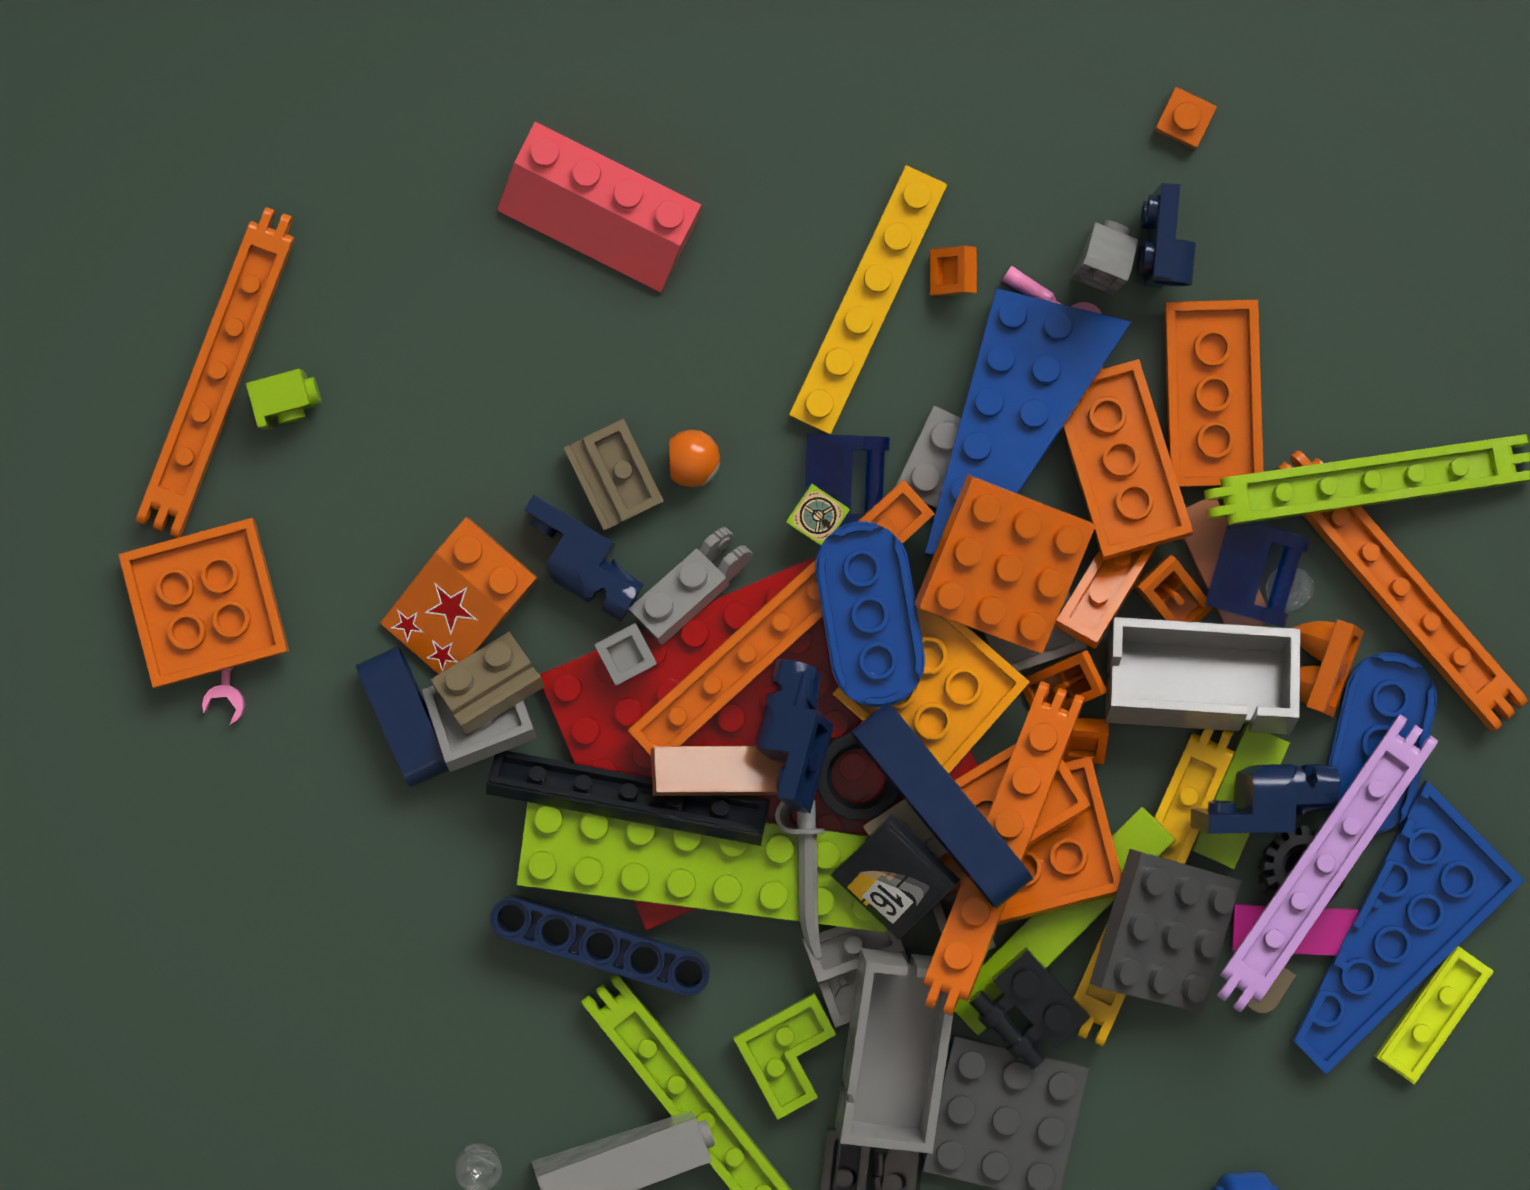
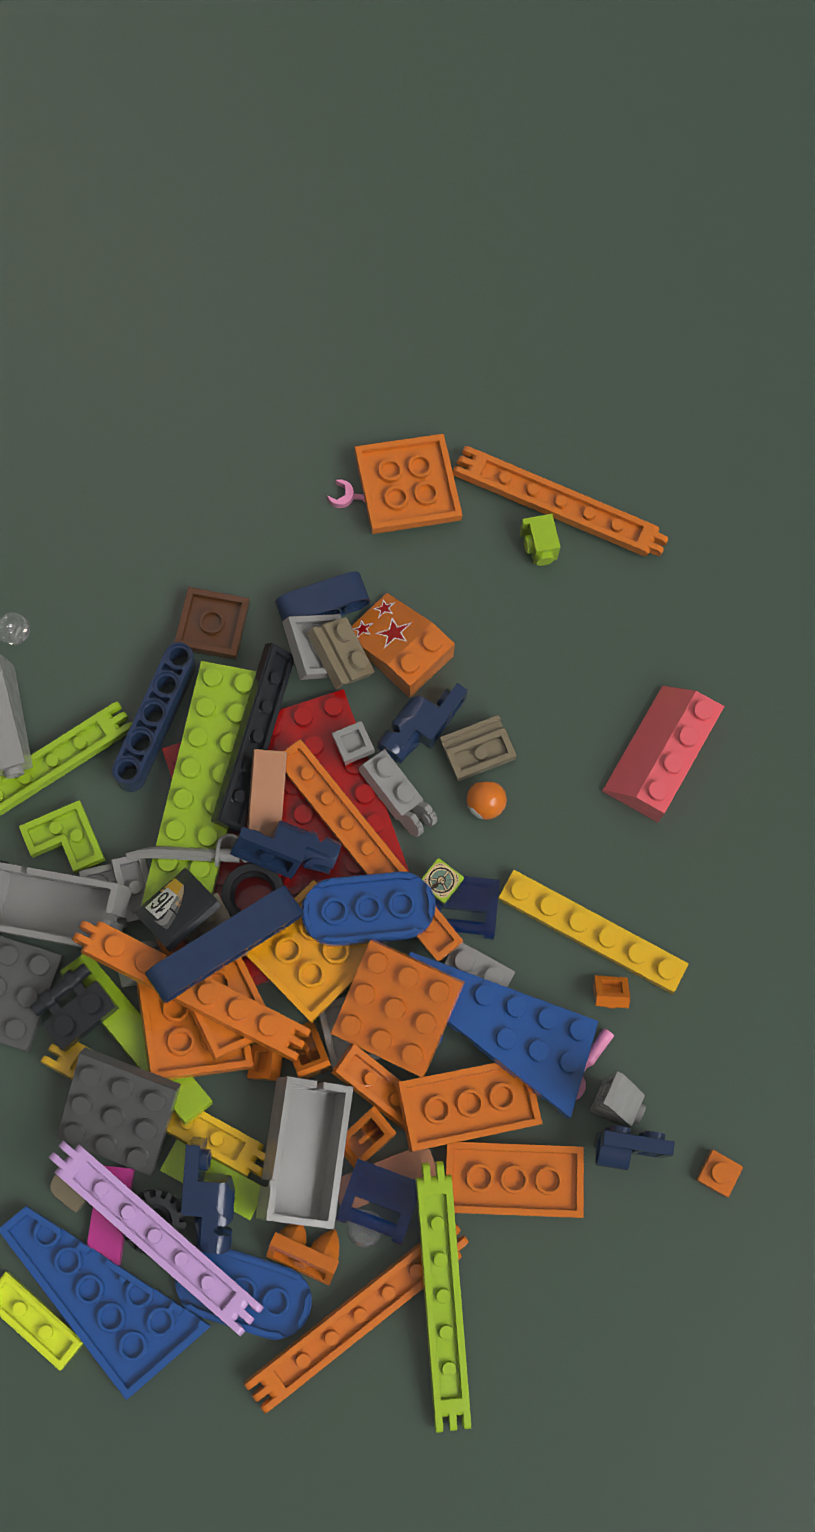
camera: 90 degrees right, 15 degrees down
(448, 876) = (213, 622): none -> reddish brown plate

